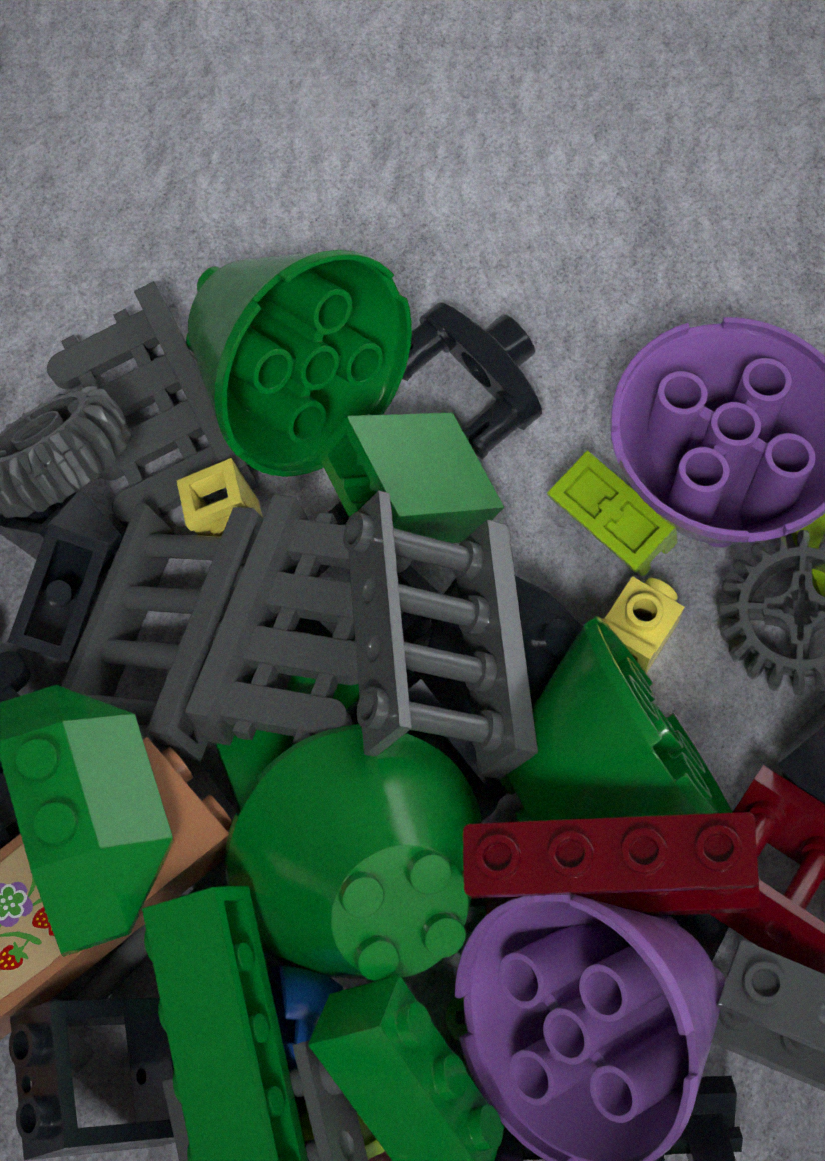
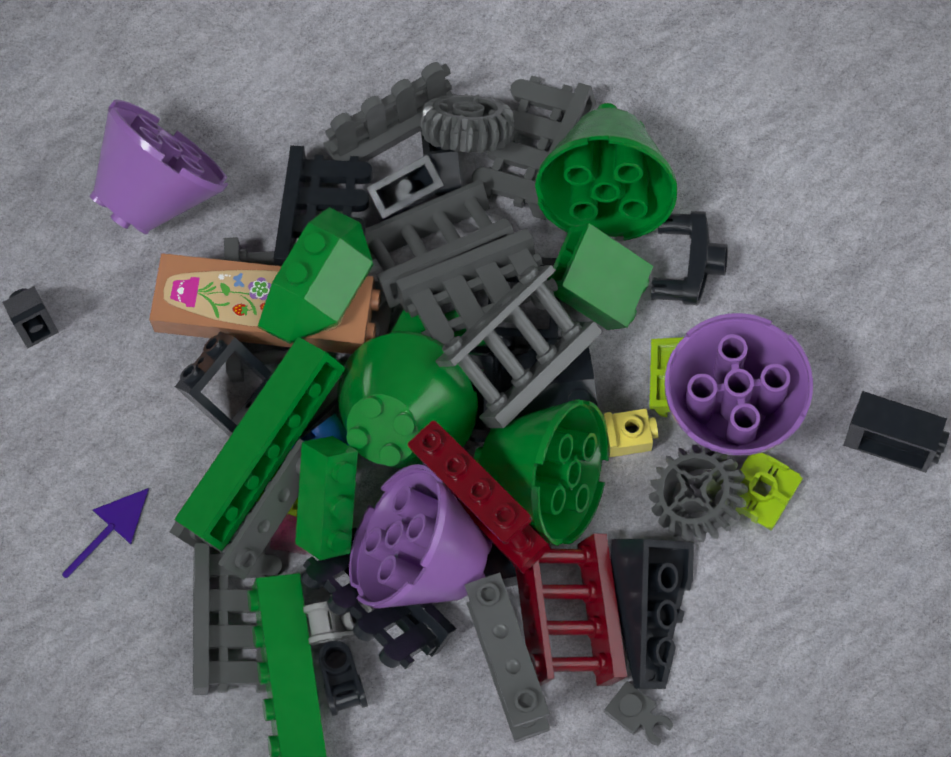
camera: 55 degrees right, 5 degrees up
(212, 518) = (521, 217): light yellow brick -> none

